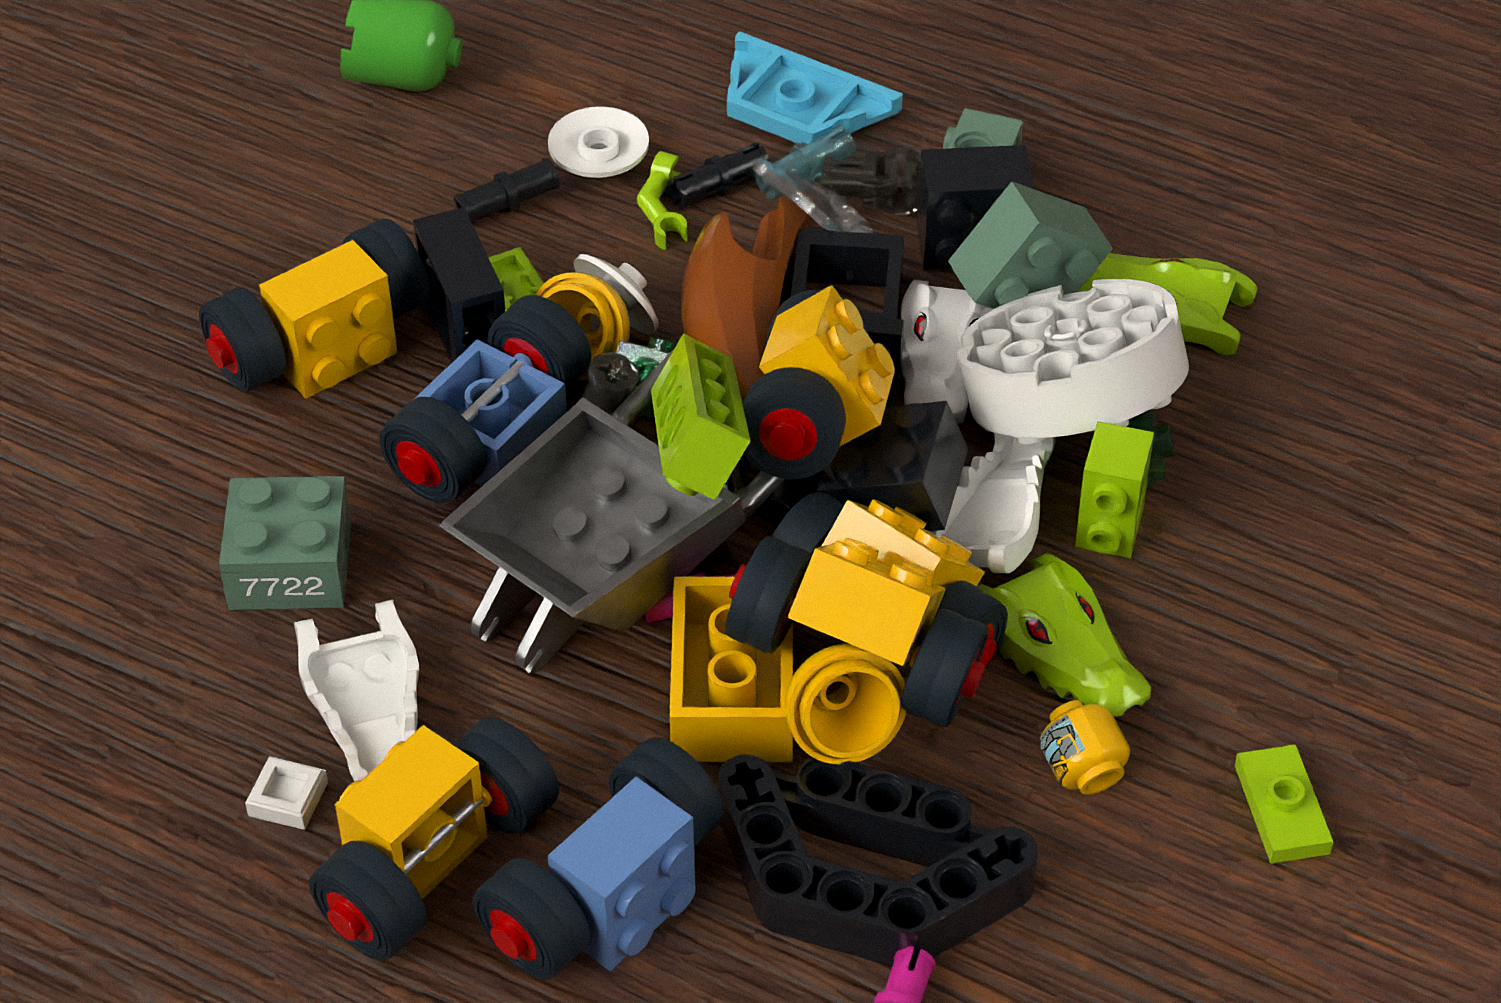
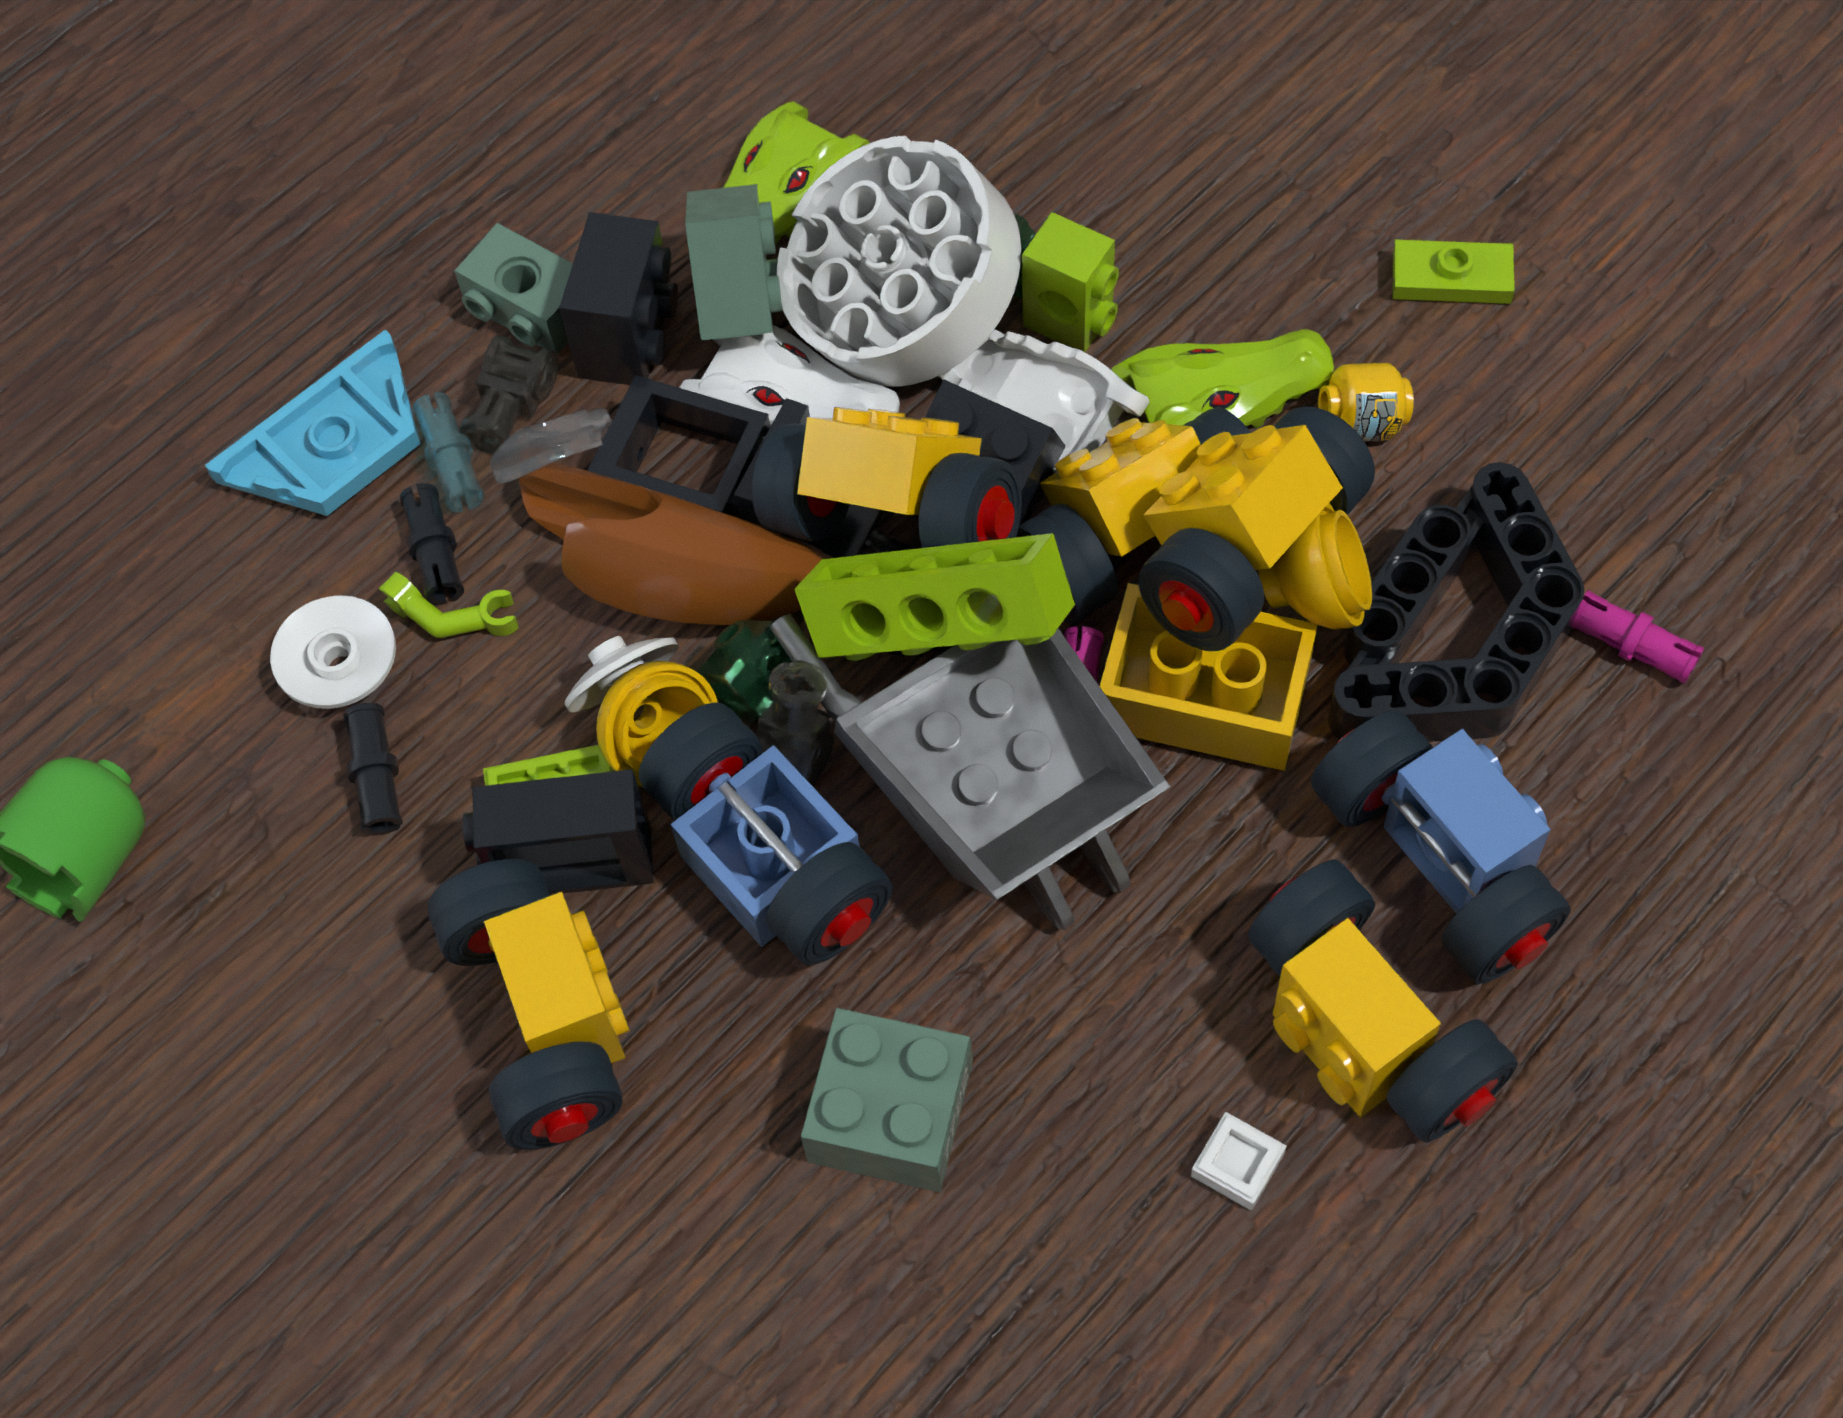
camera: 70 degrees left, 15 degrees up
(363, 687) = (1130, 1047): white animal -> none

